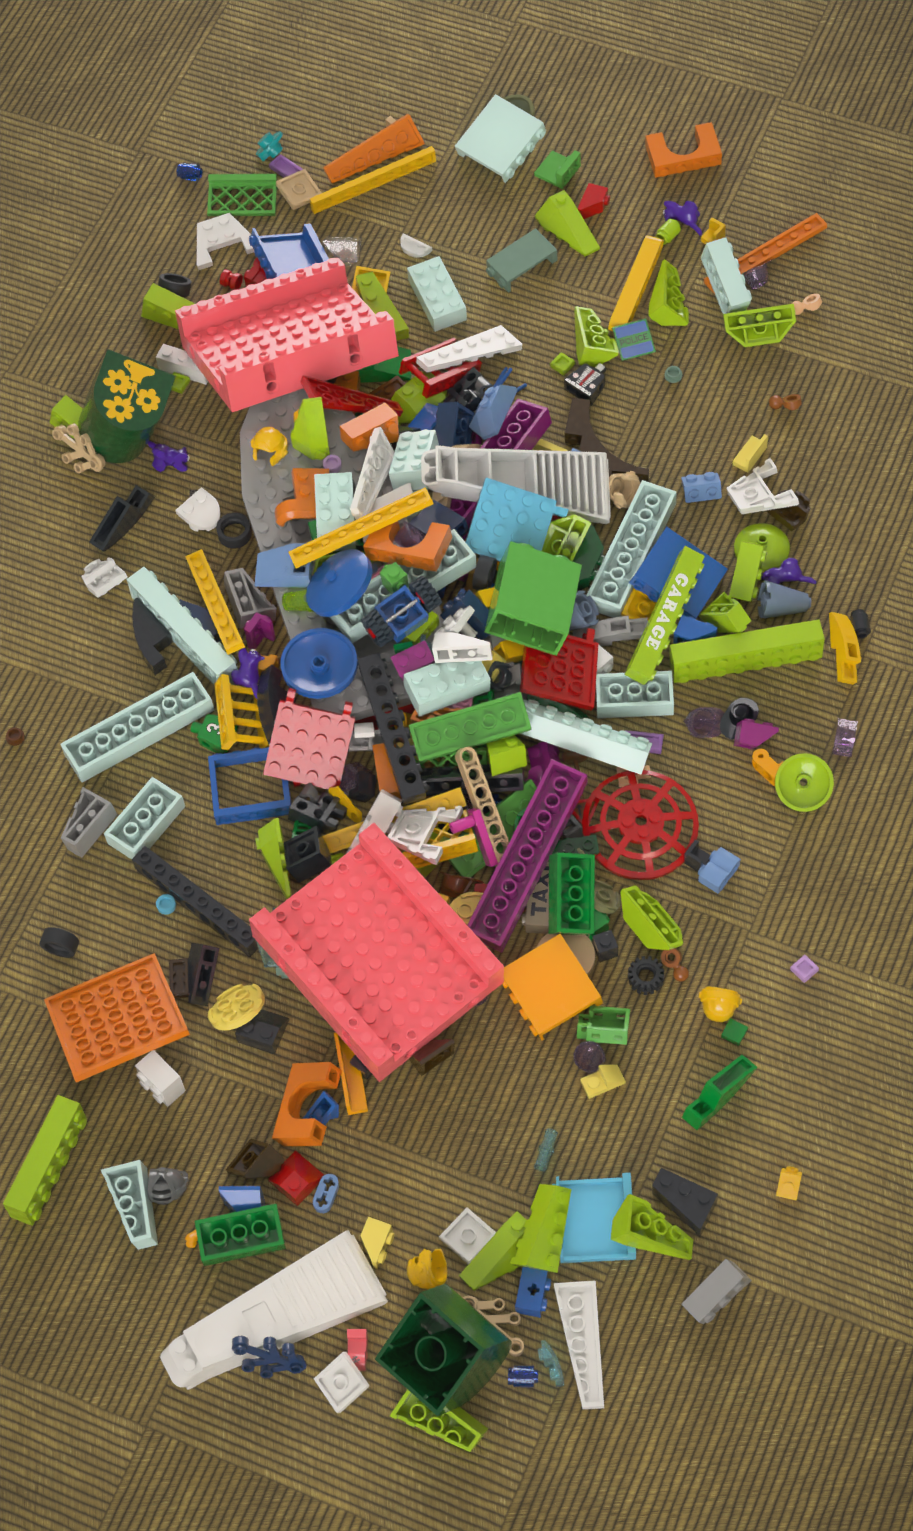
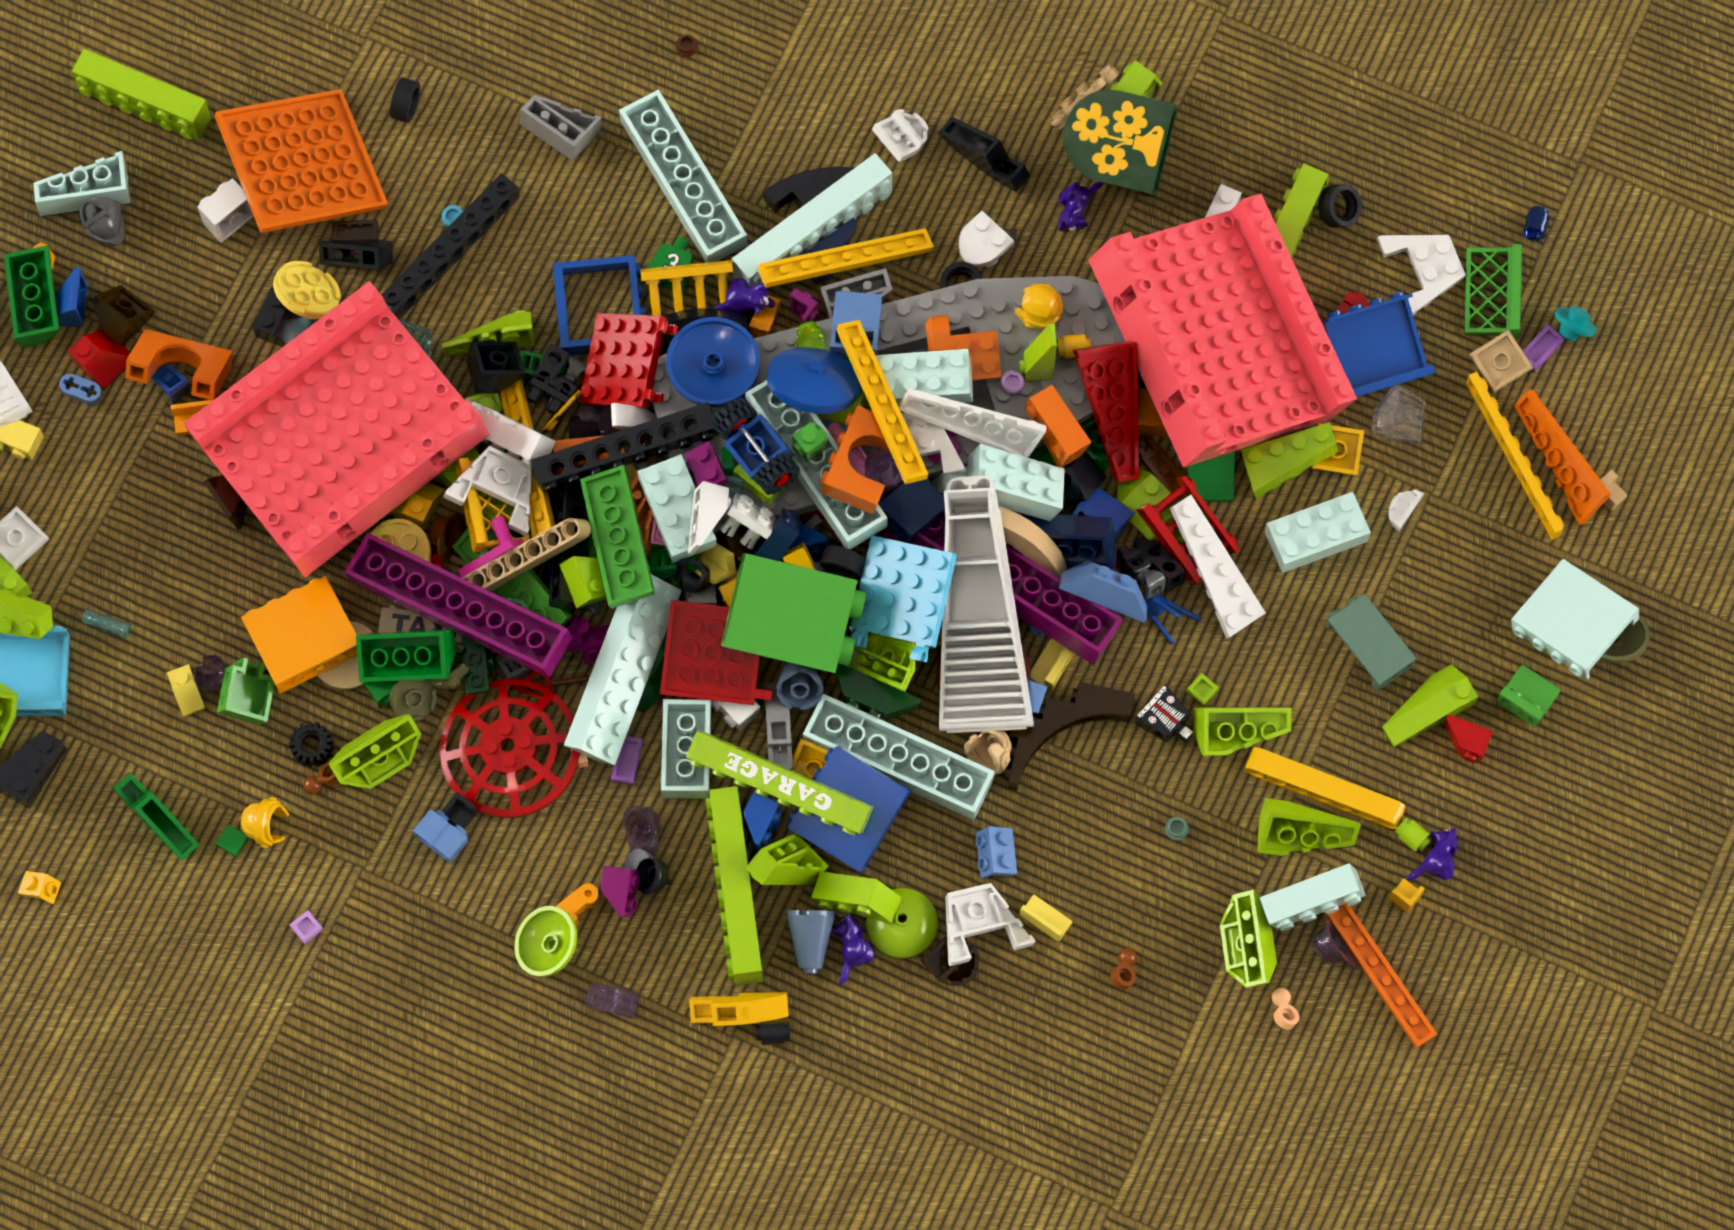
camera: 85 degrees right, 10 degrees up
(144, 818) = (557, 188): light aqua brick -> none
(180, 382) = (1192, 213): lime tile -> none
(230, 279) = (1352, 276): red wheel -> none
(605, 946) = (350, 698): black brick -> none
(633, 339) = (1230, 779): piece -> none
(667, 163) = (1547, 895): orange arch -> none

